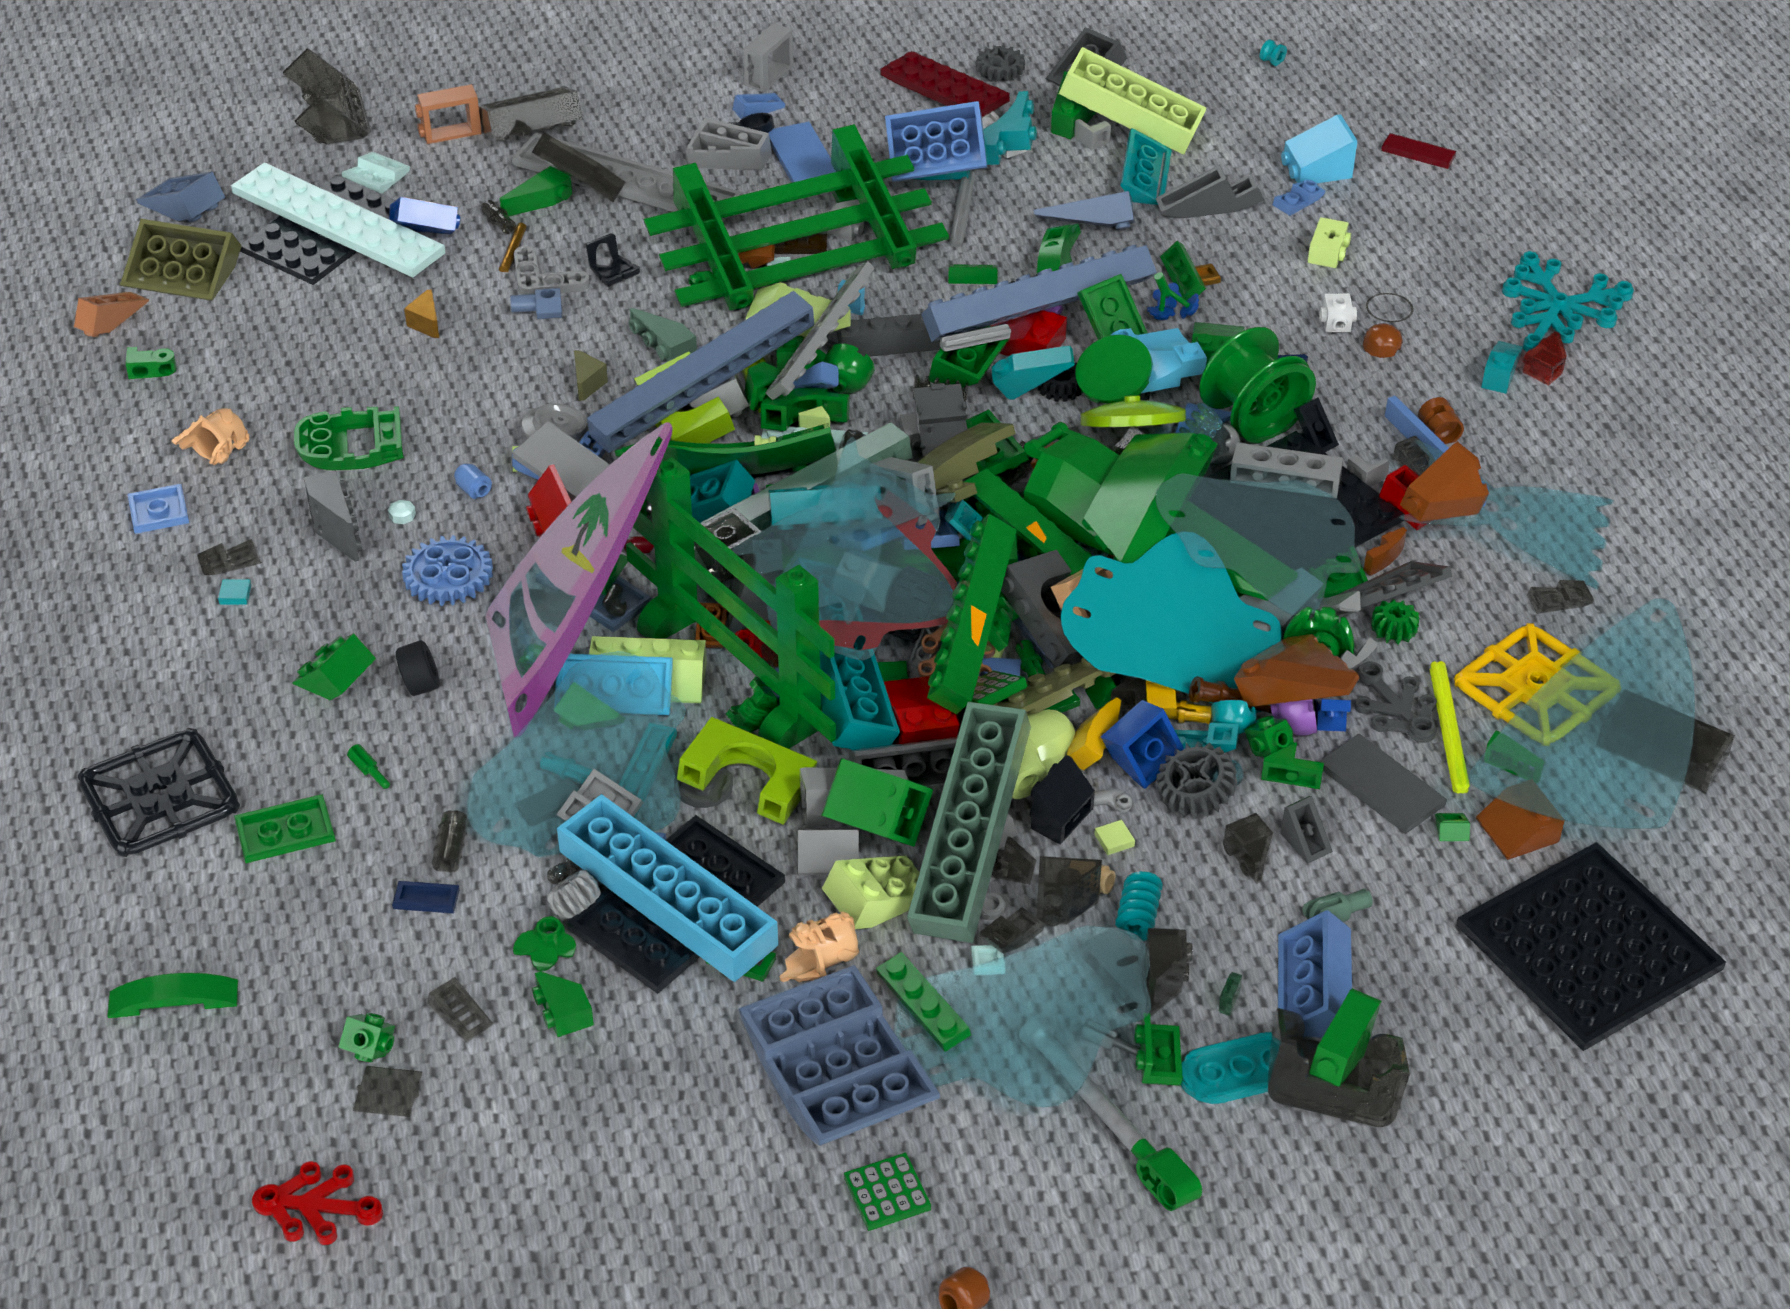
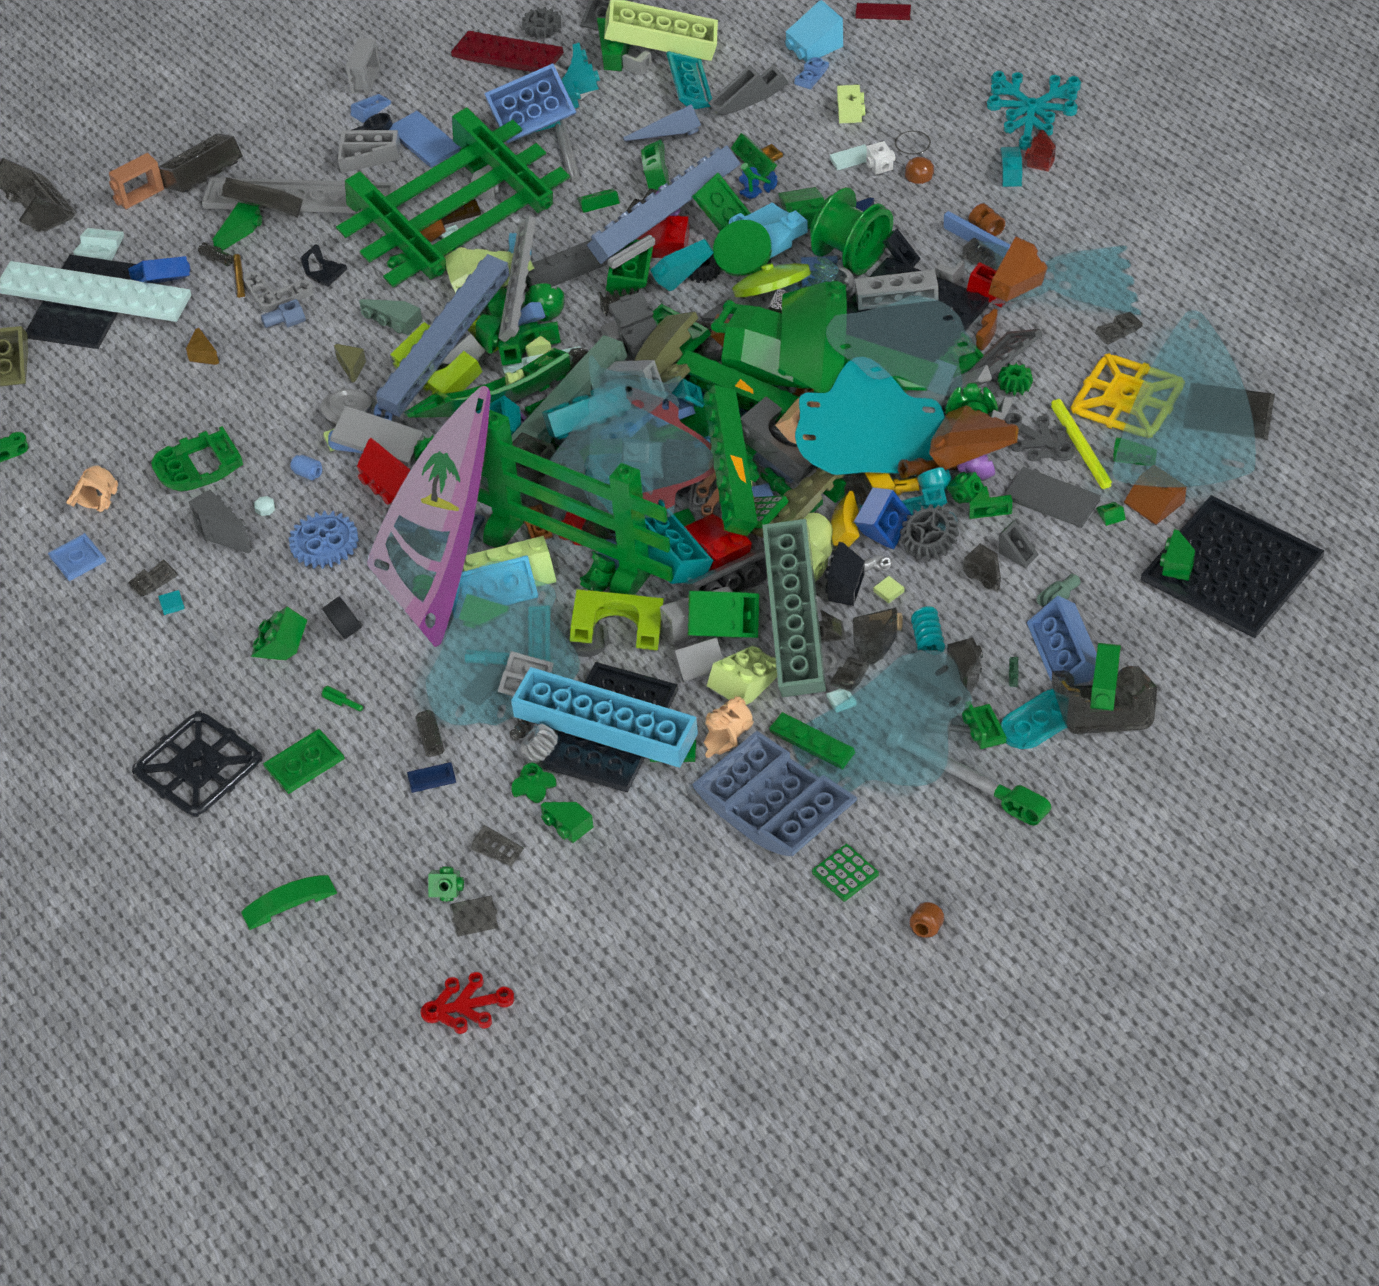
camera: 15 degrees left, 5 degrees up
(1300, 304) = (849, 157): none -> light aqua tile
(1332, 714) = (1001, 458): blue slope -> none
(1515, 910) = (1179, 557): none -> green slope

